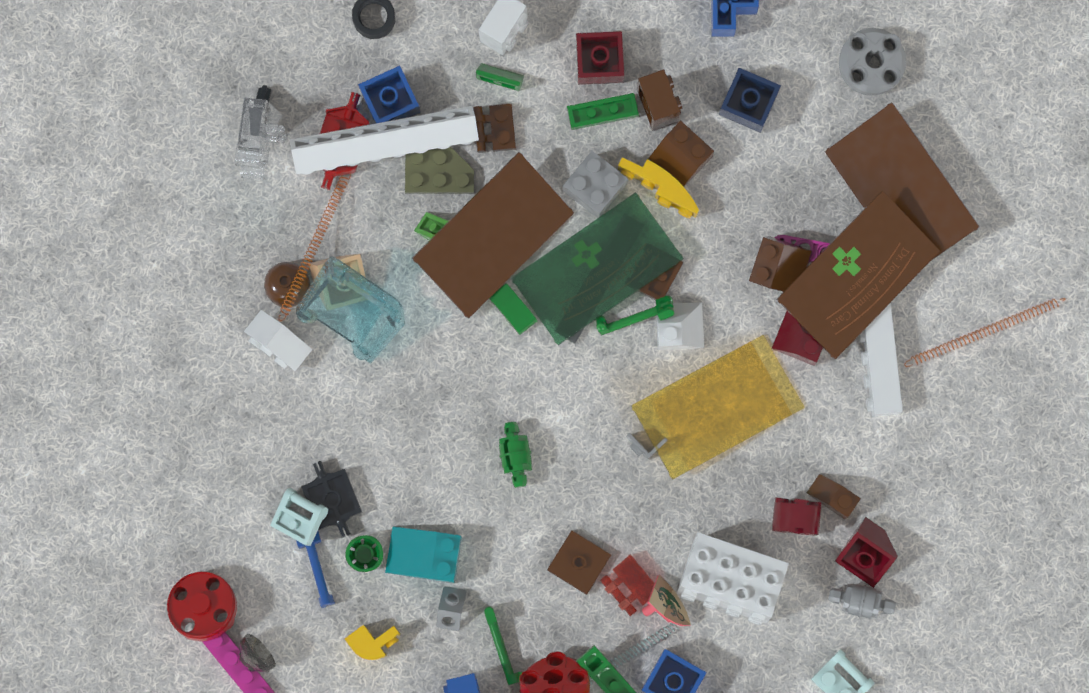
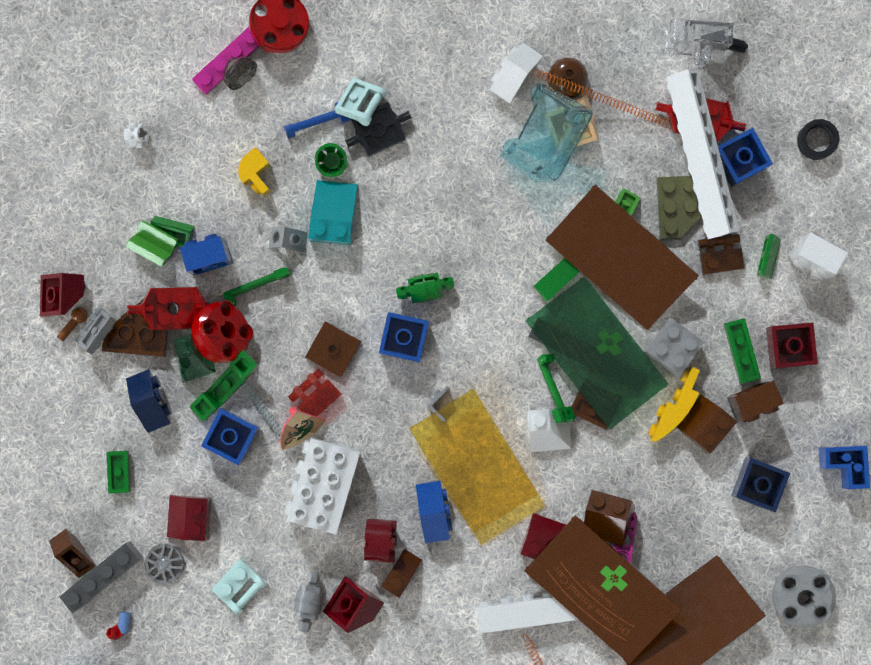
camera: 90 degrees right, 5 degrees up
(570, 480) = (404, 337): none -> blue brick
(766, 456) = (433, 511): none -> blue brick

